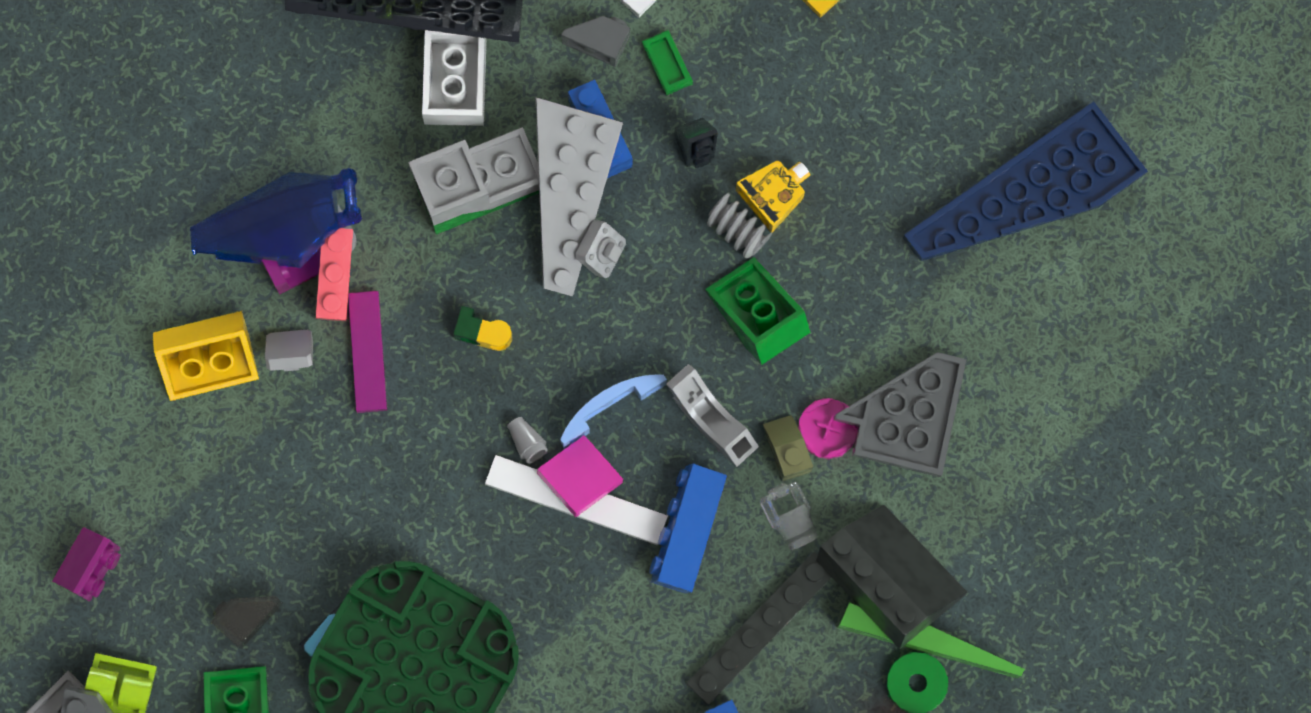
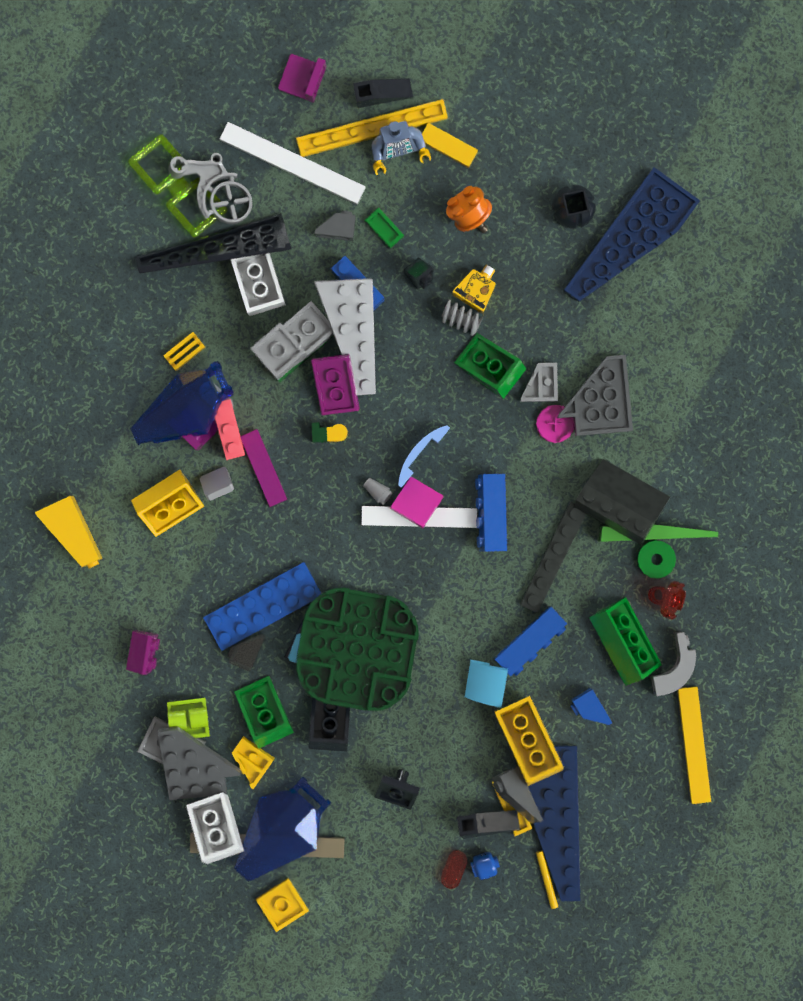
camera: 10 degrees left, 10 degrees up
(47, 346) = (71, 530): none -> yellow slope
(292, 557) = (262, 606): none -> blue plate
(329, 125) = (186, 349): none -> yellow tile
(517, 261) = (335, 384): none -> magenta tile
(600, 248) = (383, 359): light grey piece -> none
(710, 416) = (484, 441): light grey arch -> none
(788, 448) = (535, 443): olive slope -> none
(795, 525) = (554, 488): clear piece -> none
(800, 73) = (469, 209): none -> orange wheel
(827, 363) = (542, 384): none -> light grey wing
(953, 137) = (575, 219): none -> black piece

